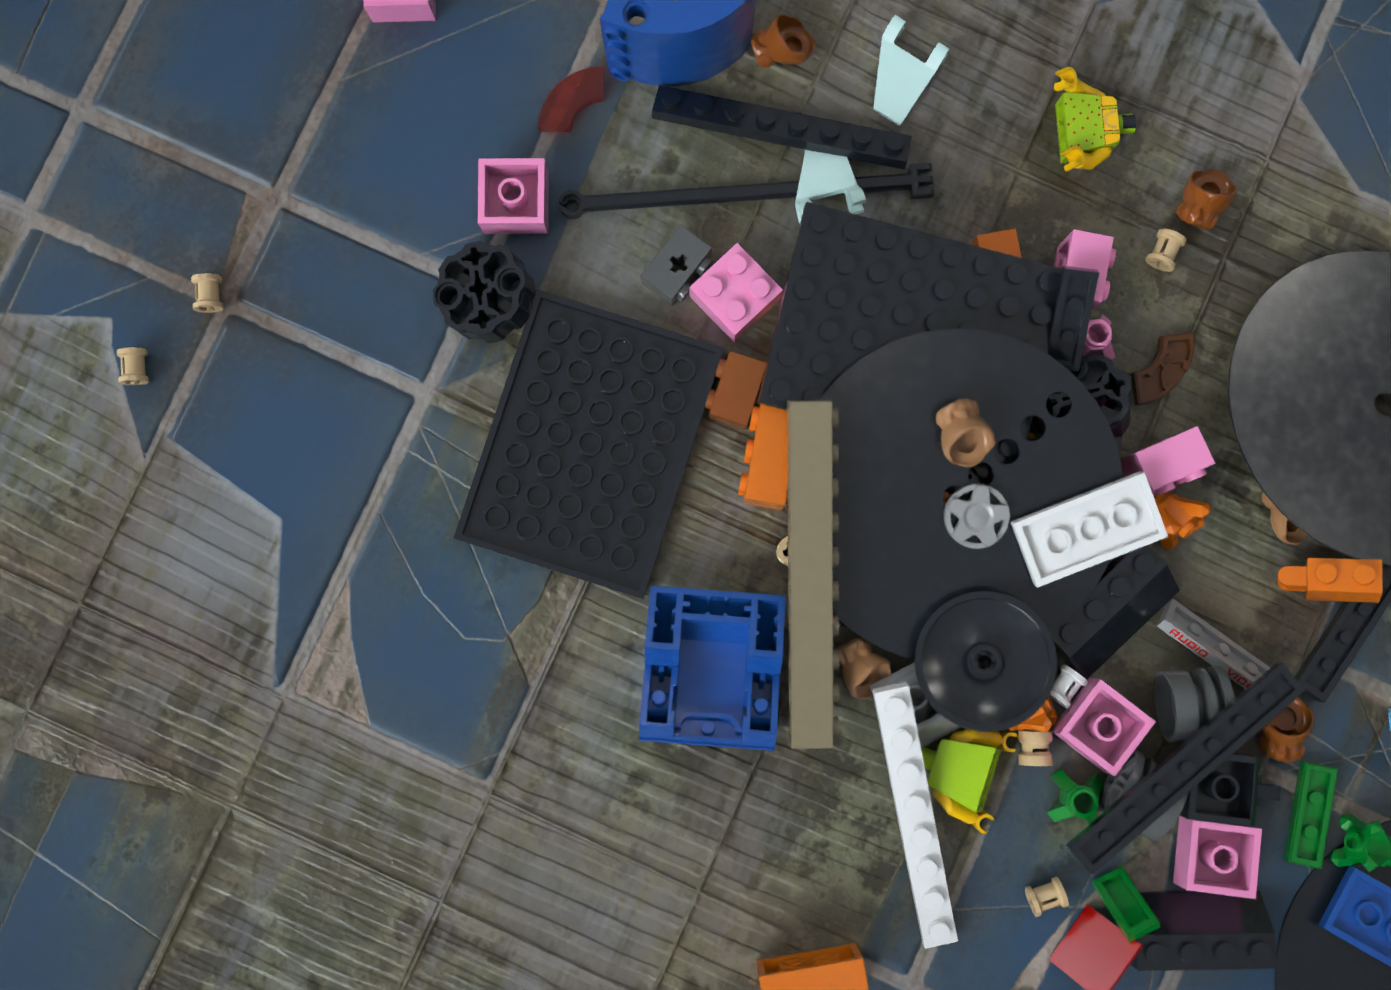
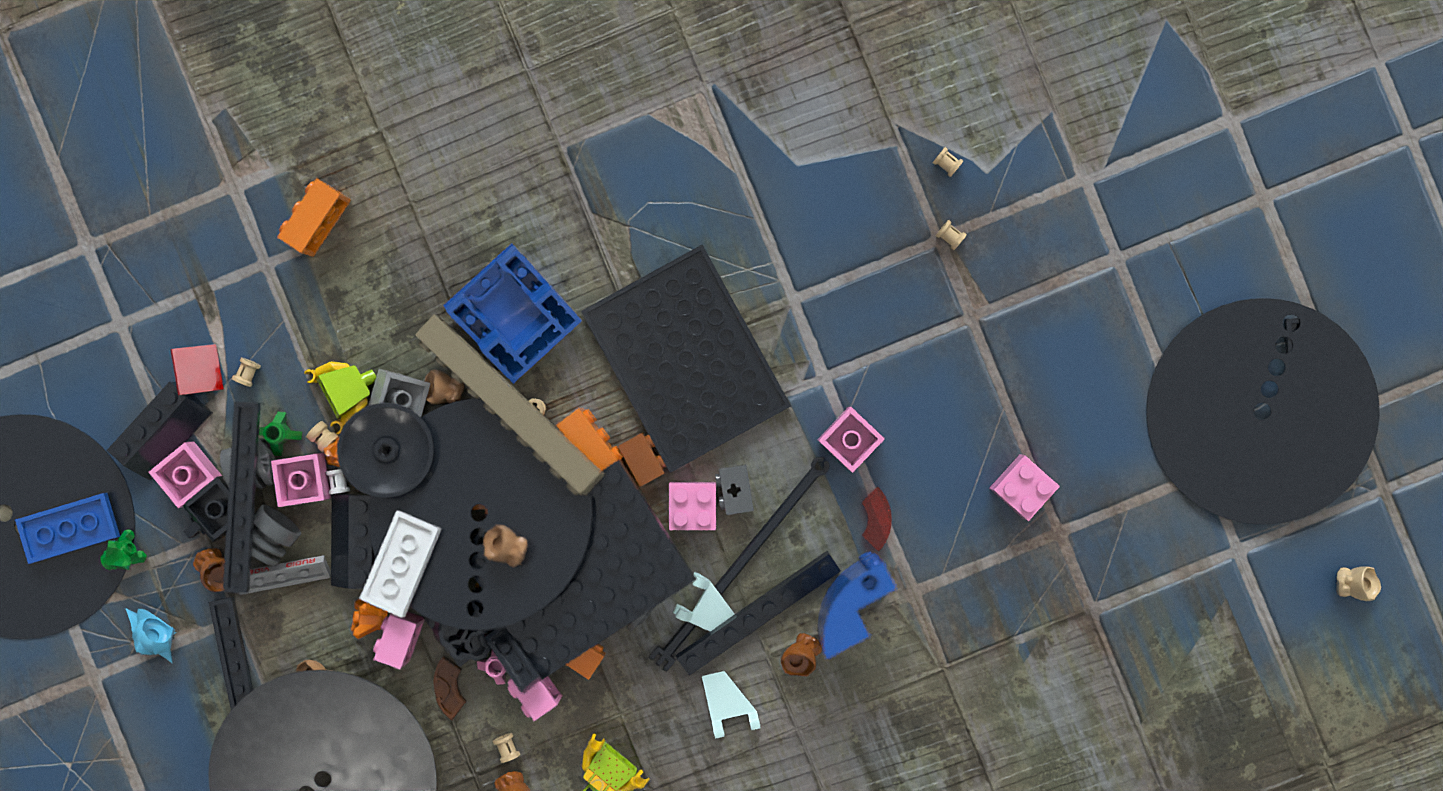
camera: 130 degrees right, 5 degrees up
(490, 268) = (811, 362): black connector -> none
(915, 814) = (345, 345): white plate -> none
(976, 516) = (459, 514): light grey wheel -> none
(1126, 904) = (205, 407): green tile -> none
(1310, 814) = (162, 542): green tile -> none
(1335, 579) = (262, 665): orange brick -> none

